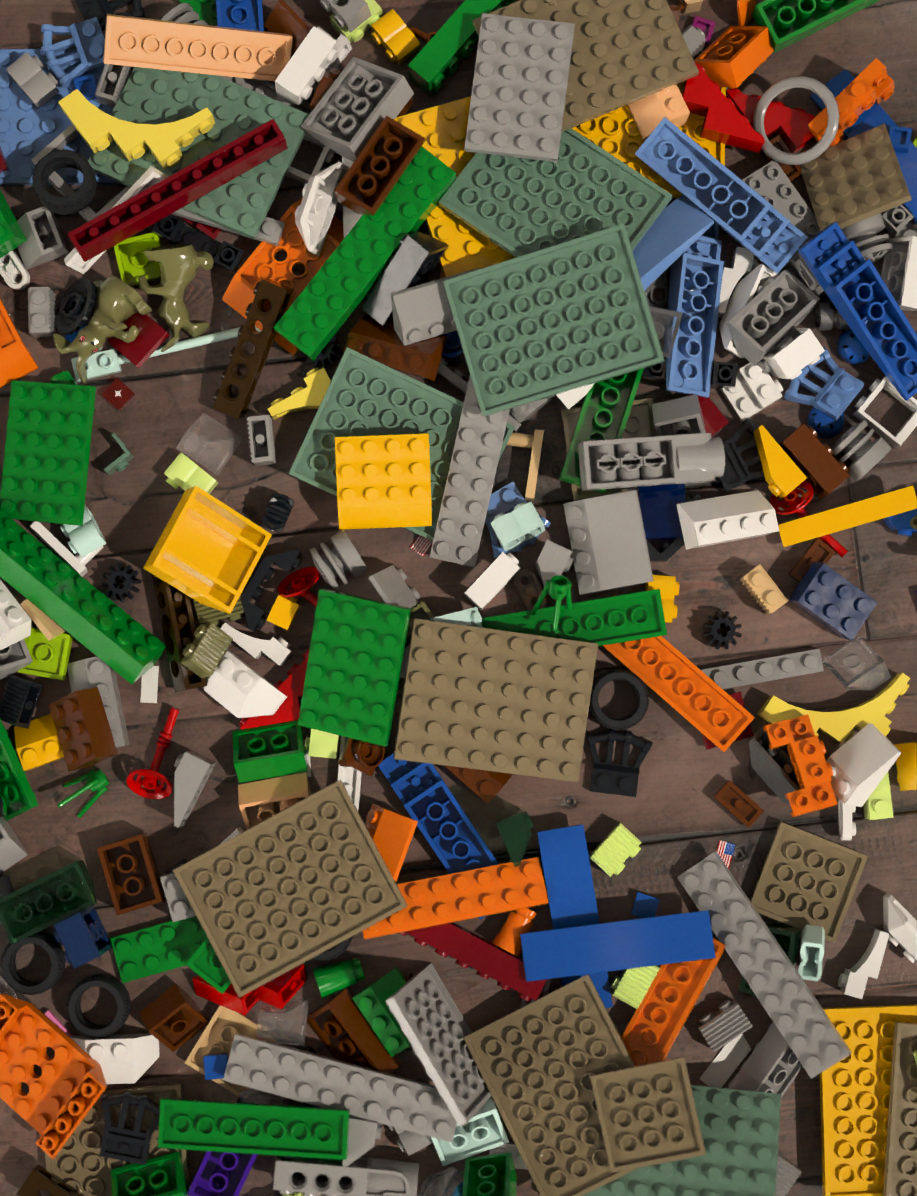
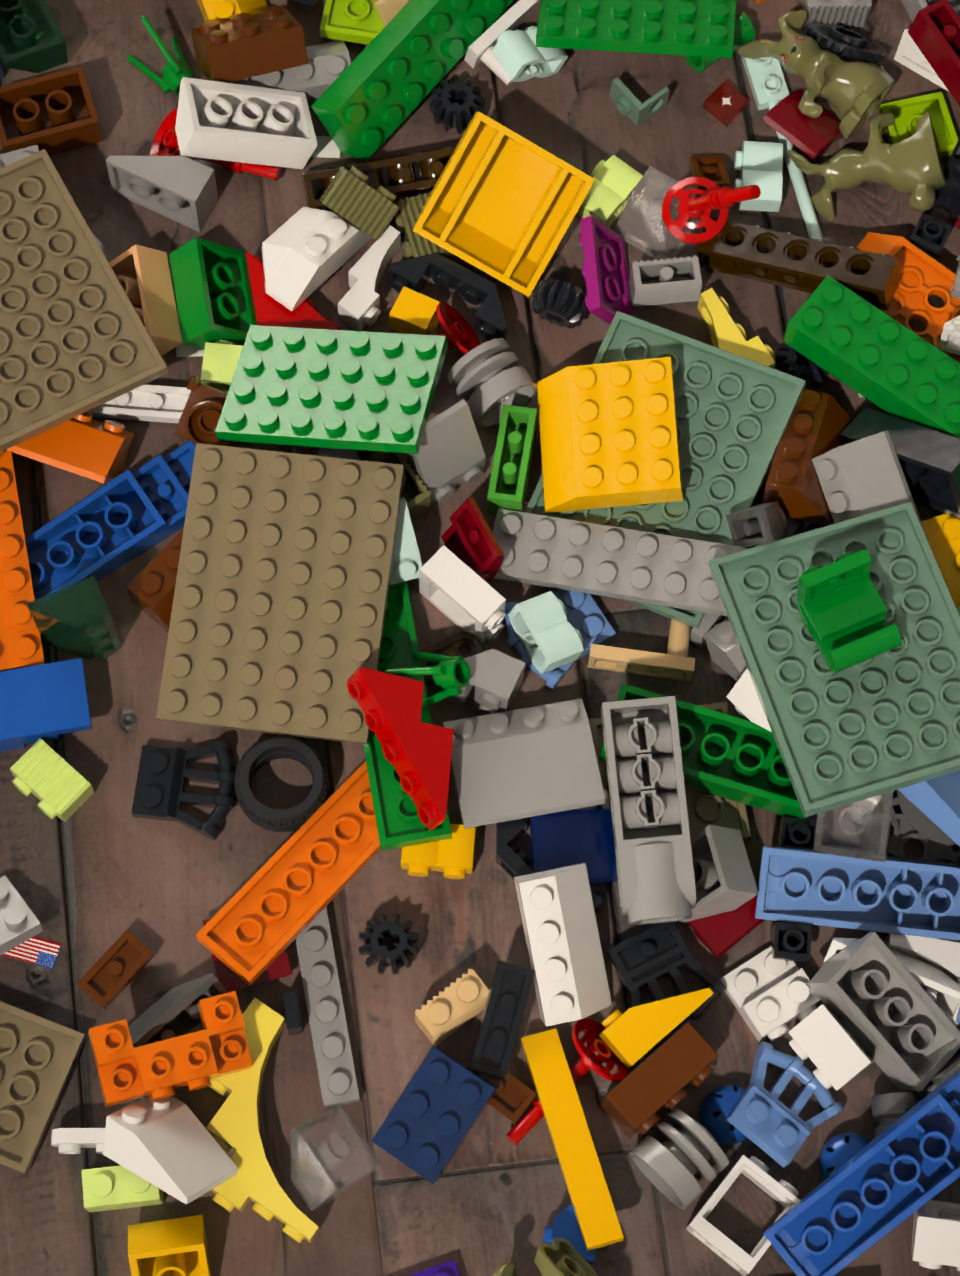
camera: 85 degrees right, 15 degrees down
(144, 731) = (244, 124): none -> white slope
(177, 372) = (762, 166): none -> light aqua brick
(179, 407) = (711, 168): none -> reddish brown slope
(212, 416) = (701, 208): none -> red dish
(256, 481) = (604, 270): none -> magenta plate
(394, 547) = (512, 459): none -> bright green brick
(452, 383) = (757, 525): none -> flat silver slope
(457, 574) = (473, 541): none -> dark red slope
(532, 326) = (845, 612): none -> green piece
(609, 610) = (415, 748): none -> red slope
(766, 690) = (293, 1013): none -> black tile
(774, 558) = (501, 1019): none -> black piece

